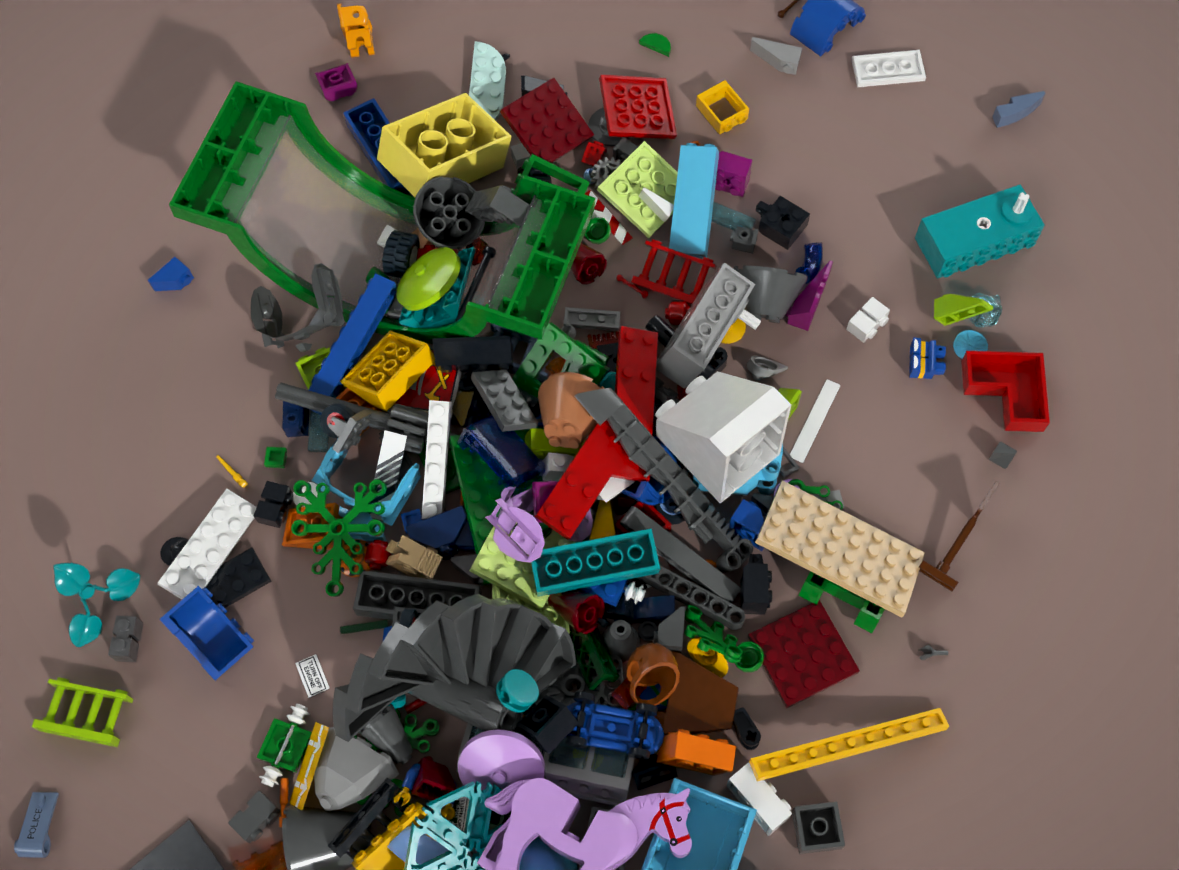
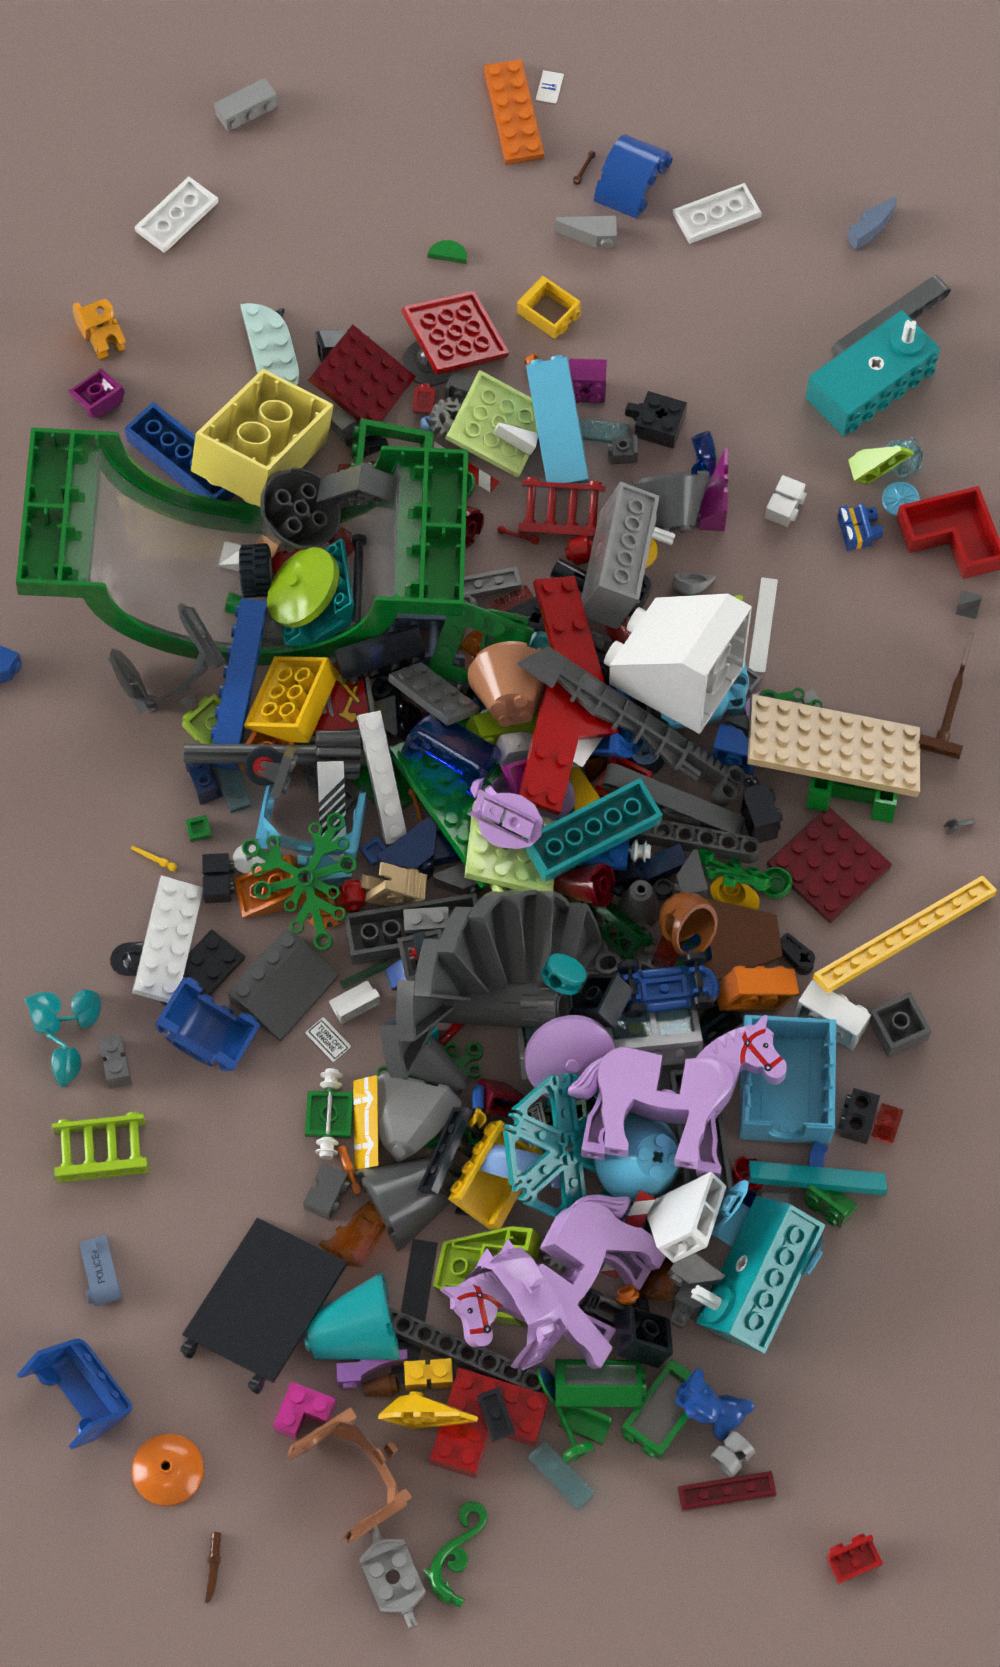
camera: 20 degrees left, 0 degrees up
(290, 615) = (282, 984): none -> dark grey slope
(345, 649) = (355, 1002): none -> white panel
(425, 595) = (425, 919): none -> light grey plate
(1032, 183) = (913, 304): none -> dark grey beam

